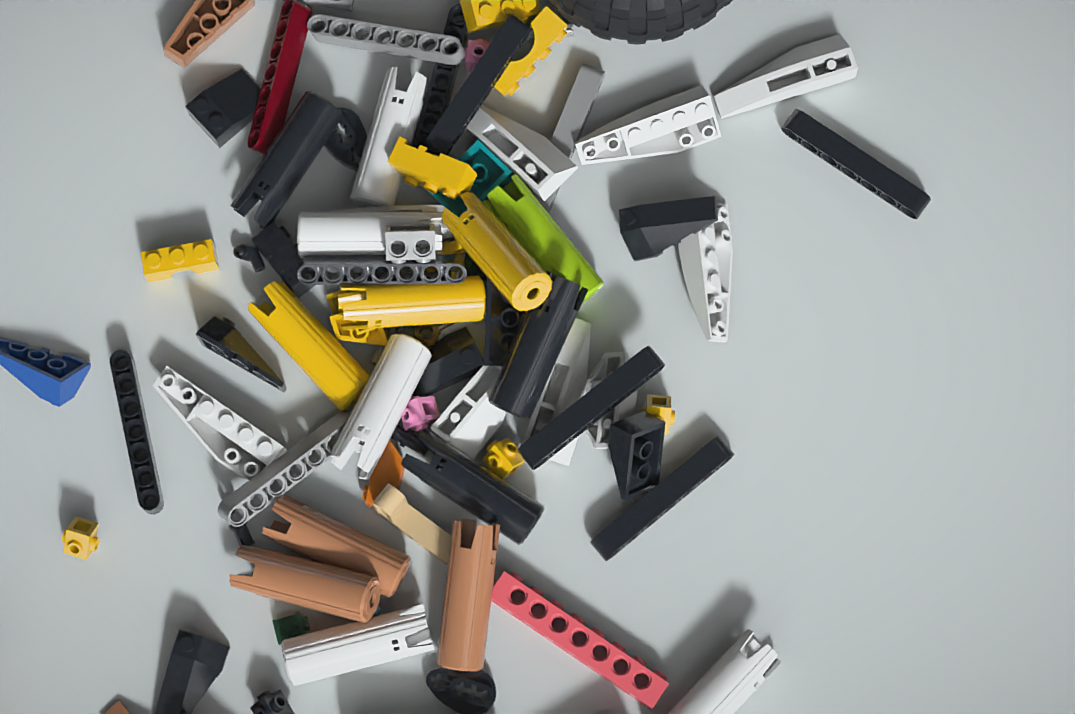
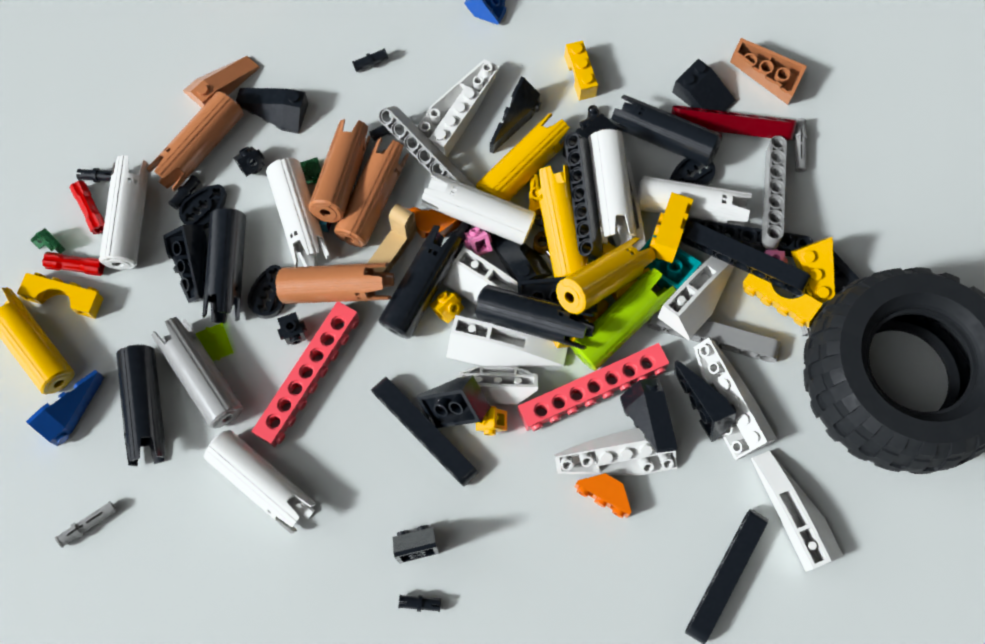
camera: 80 degrees right, 5 degrees down
(81, 538) = (370, 27): yellow brick -> none
(129, 543) = (370, 60): none -> black pin
(143, 441) = (443, 53): black beam -> none
(410, 236) = (609, 207): brick -> none
(515, 665) = (291, 329): none -> black brick
(587, 213) = (653, 355): none -> coral brick
(591, 407) = (488, 363): black beam -> none
(663, 151) = (714, 409): none -> black wedge
(752, 288) = (606, 492): none -> orange slope
(803, 512) = (415, 544): none -> black slope
(869, 515) = (419, 603): none -> black pin

